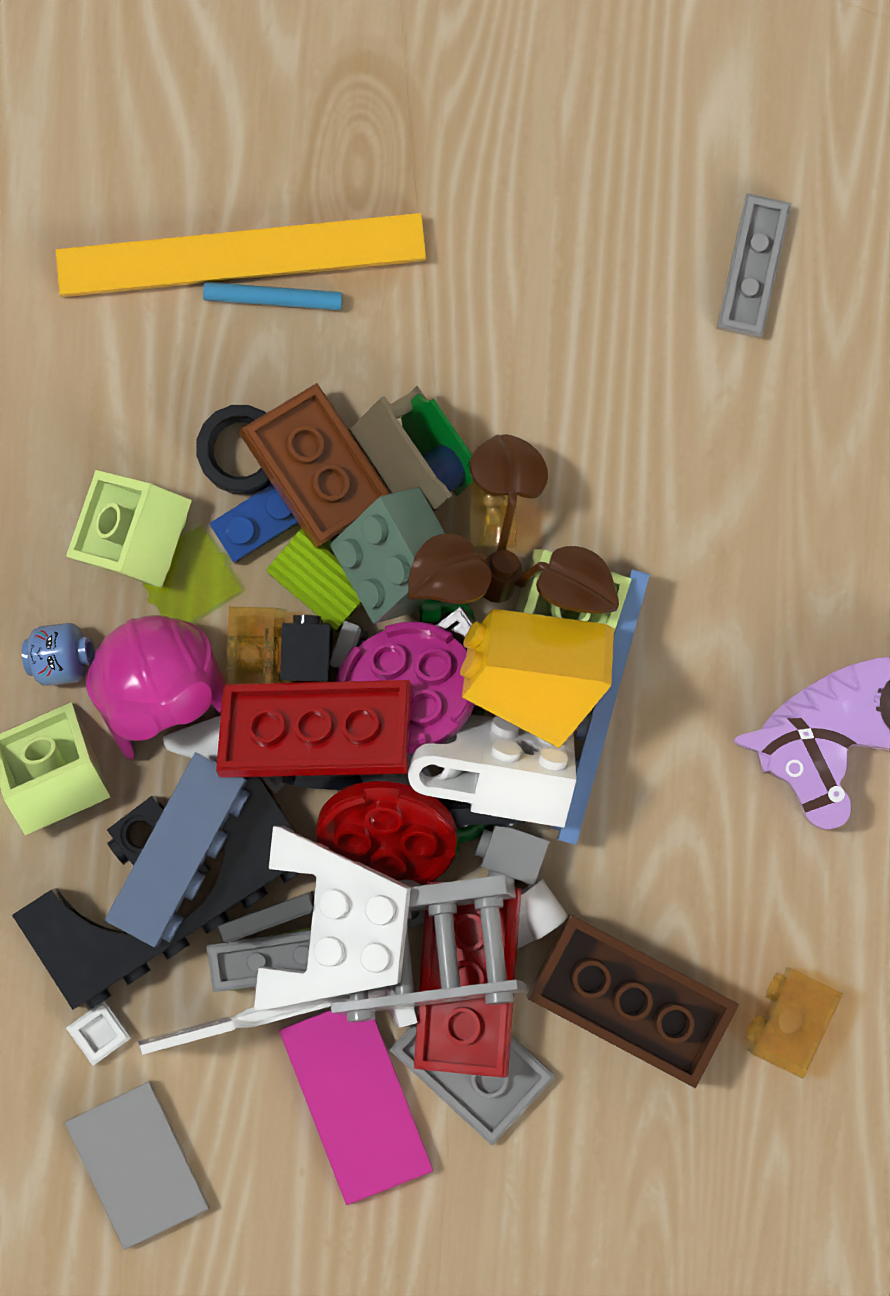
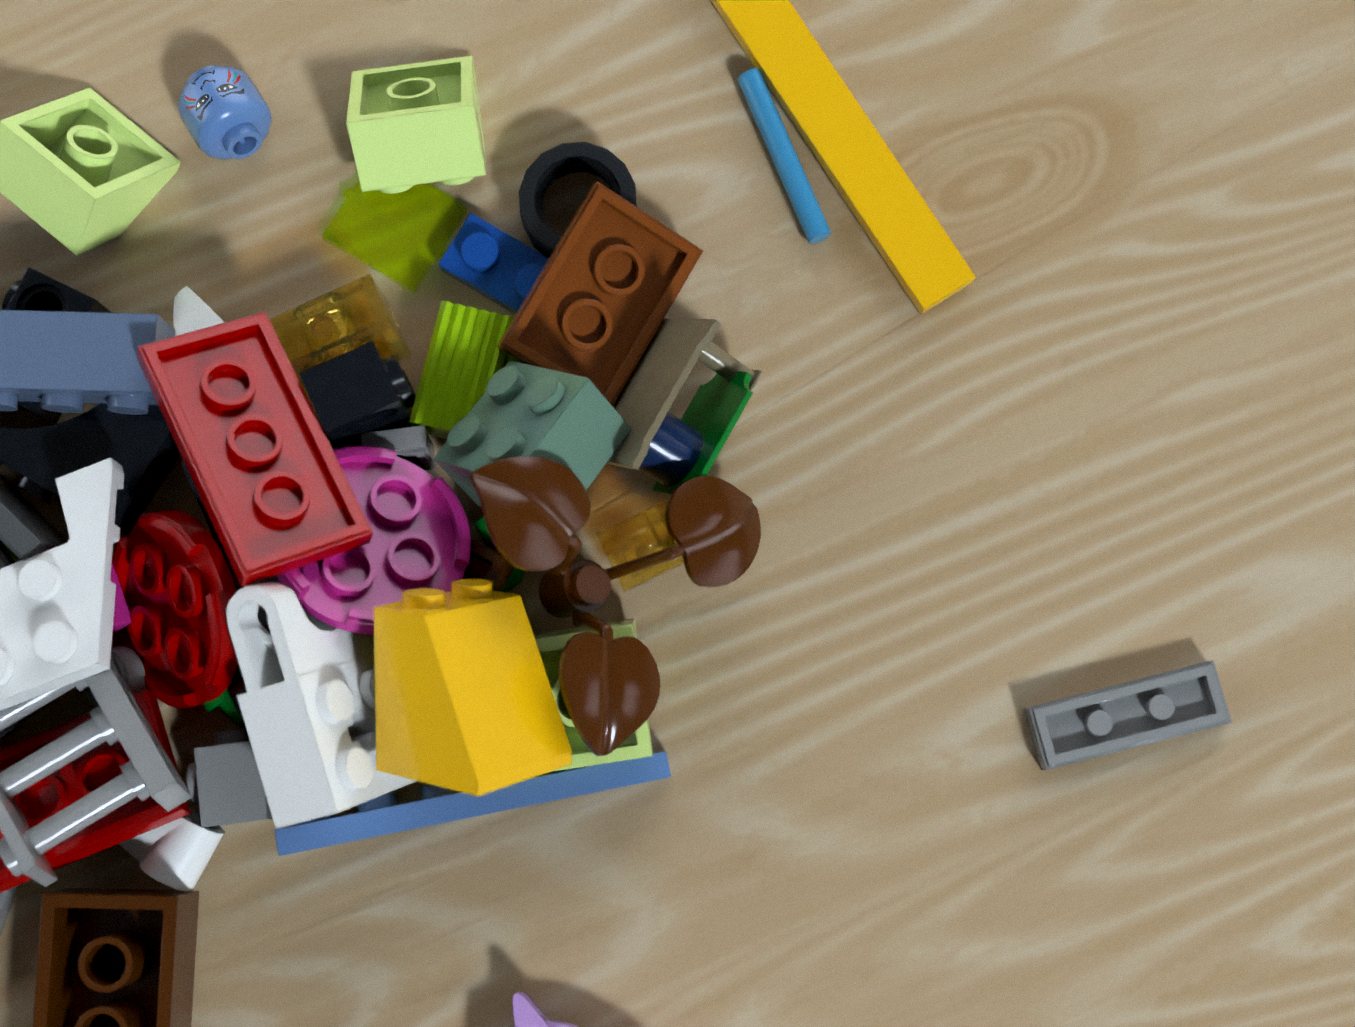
camera: 65 degrees right, 5 degrees down
(152, 678) = (239, 228): dark pink piece -> none

